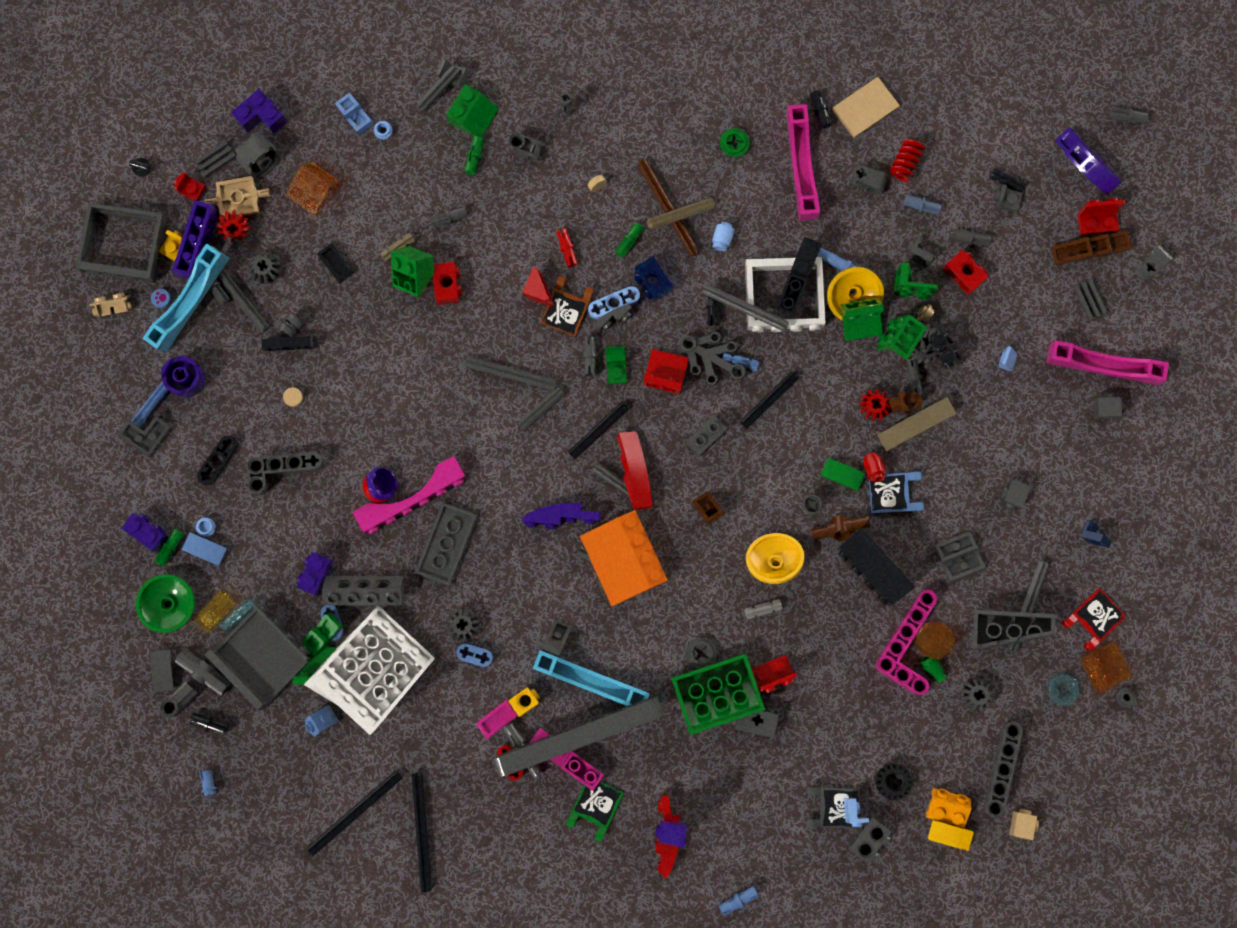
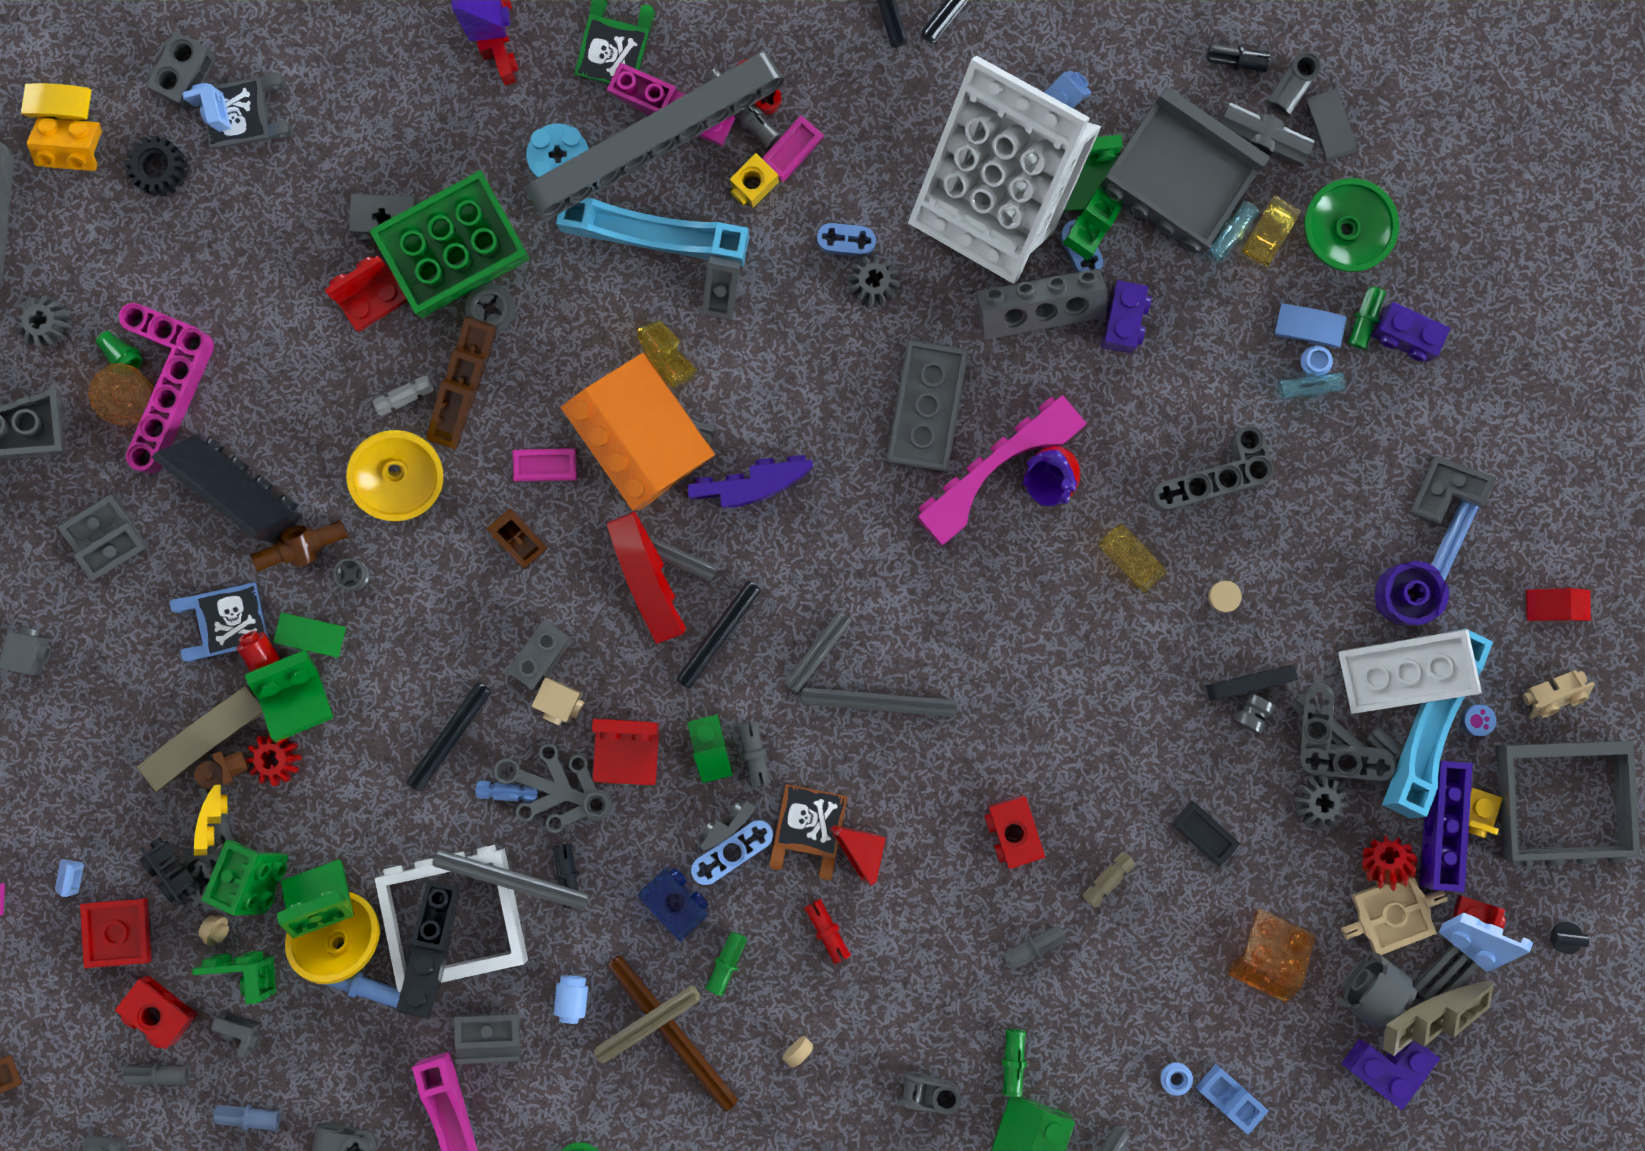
camera: 165 degrees right, 5 degrees up
(97, 355) = (1558, 604): none -> red slope
(190, 171) = (1483, 941): none -> light blue wing
(195, 330) = (1410, 671): none -> white plate
(214, 475) = (1335, 466): black beam -> none
(222, 136) = (1442, 1013): none -> dark tan slope
(224, 513) = (1291, 387): none -> clear light blue pin
(255, 298) = (1323, 746): none -> dark grey beam
(342, 429) = (1132, 557): none -> clear yellow slope
(411, 270) = (1076, 842): green slope -> none
(601, 608) = (661, 349): none -> clear yellow slope
(650, 751) = (547, 140): none -> medium azure plate
(684, 551) = (544, 465): none -> dark pink tile
(700, 407) = (558, 701): none -> tan brick
(726, 610) = (461, 382): none -> reddish brown slope
(775, 223) = (487, 1038): none -> dark grey plate
(858, 437) = (290, 695): none -> green bracket
(914, 379) = (210, 813): none -> yellow slope
(983, 322) = (115, 932): none -> red plate

